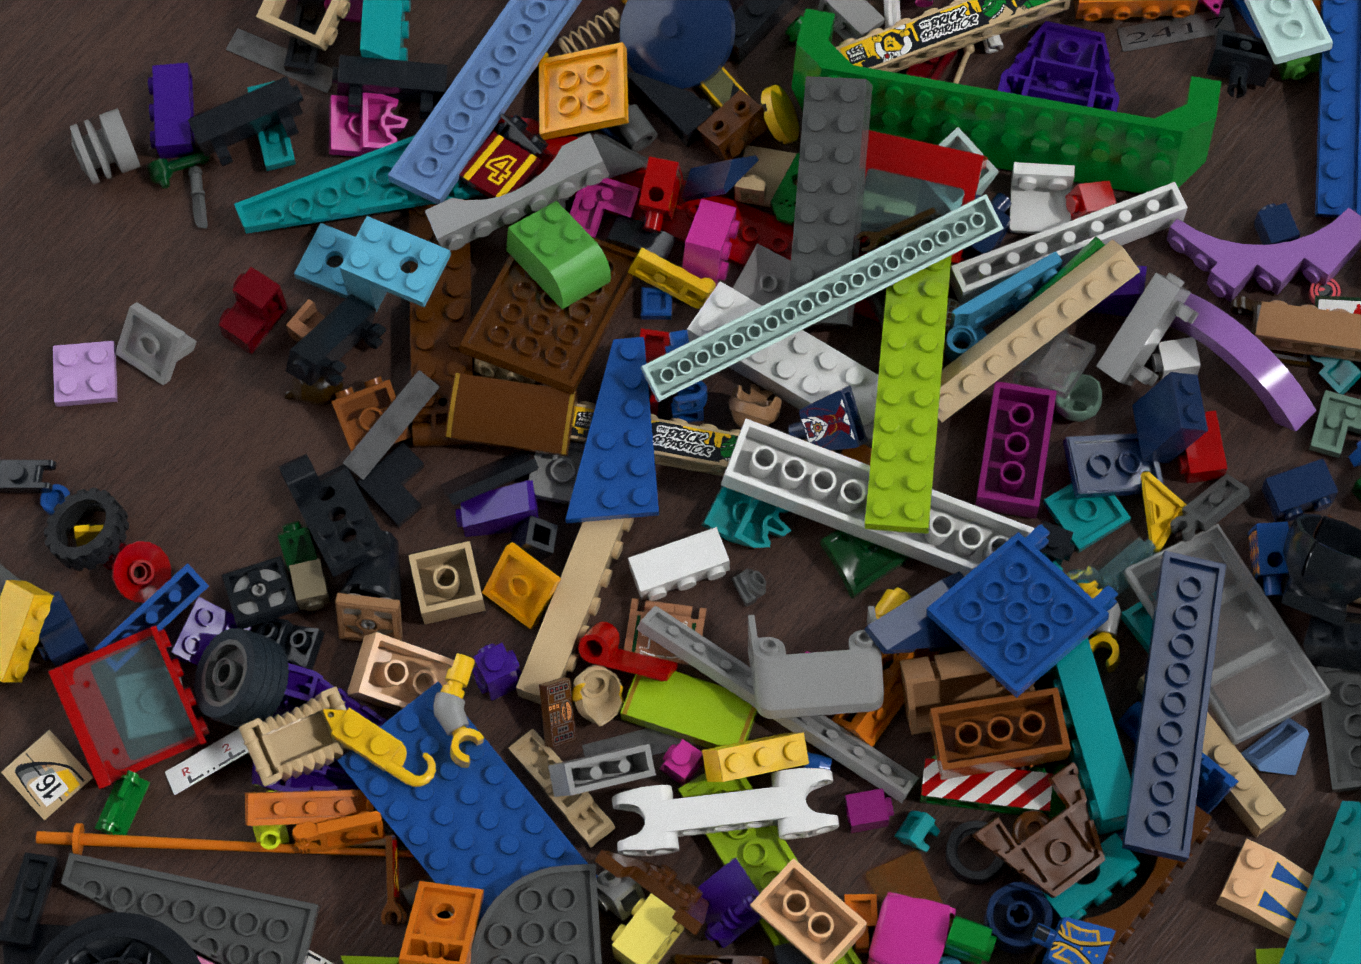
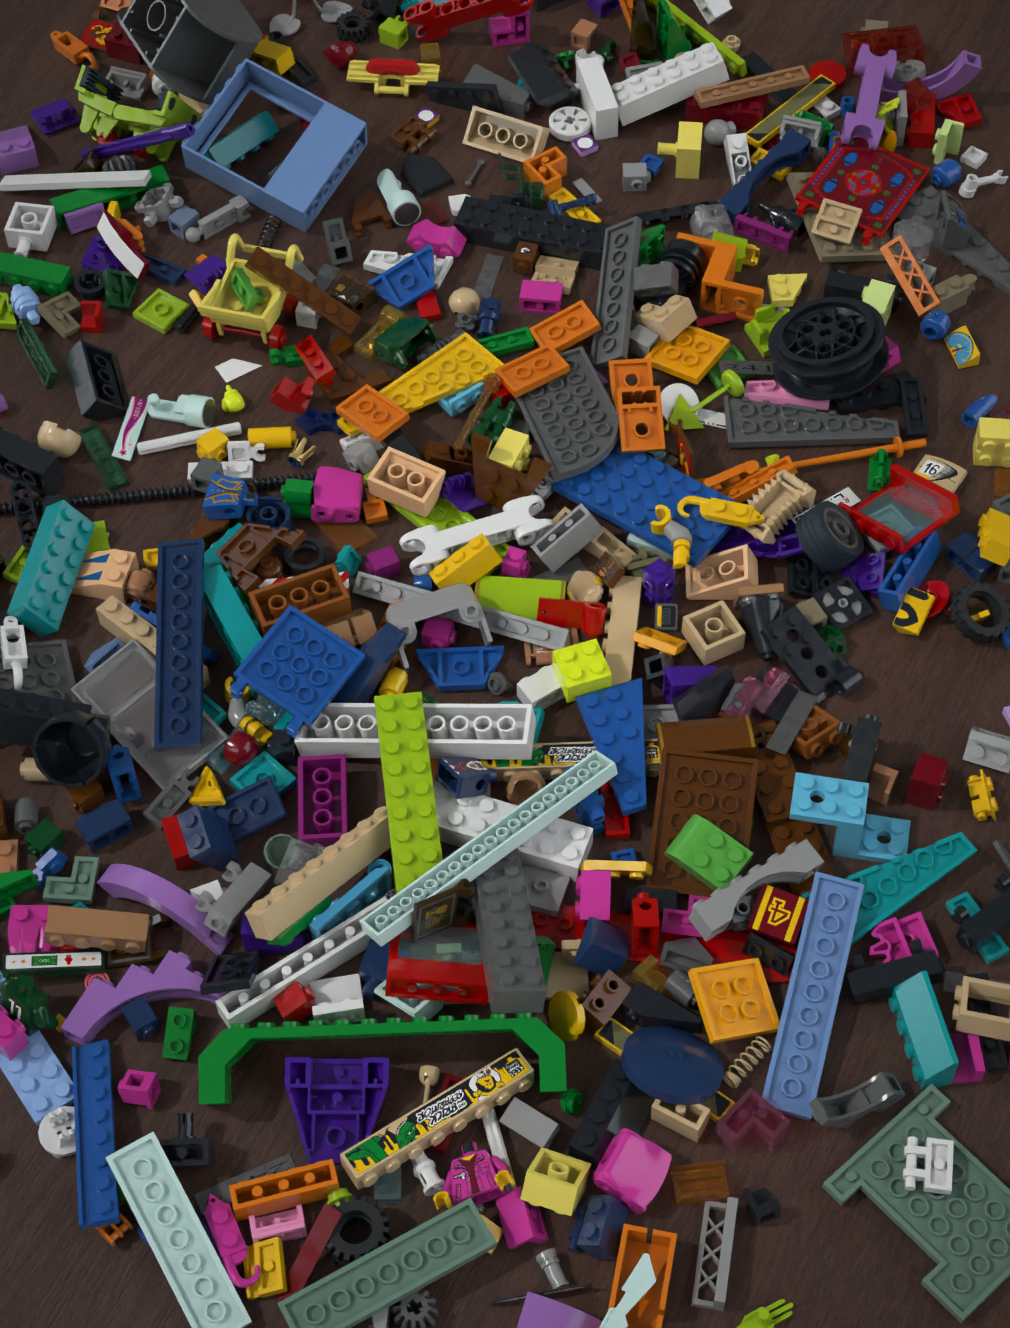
camera: 165 degrees right, 15 degrees down
(169, 555) = (913, 611): none -> yellow slope
(188, 295) = (986, 804): none -> yellow hinge
(427, 472) = (753, 694): none -> clear pink plate
(498, 632) = (666, 617): none -> slope
(502, 721) = (636, 568): none -> olive hips
(641, 542) = (581, 669): none -> neon yellow brick
(669, 146) = (649, 975): none -> clear yellow panel
(796, 616) = (460, 666): none -> blue wing
(1107, 550) = (241, 749): none -> dark red hair
(1165, 234) = (232, 972): none -> black tile
(1192, 910) = (150, 559): none -> yellow tile
(1216, 856) = (139, 584): none -> nougat head
(1232, 203) = (178, 1034): none -> green plate
(1298, 142) = (140, 1088): none -> dark pink brick

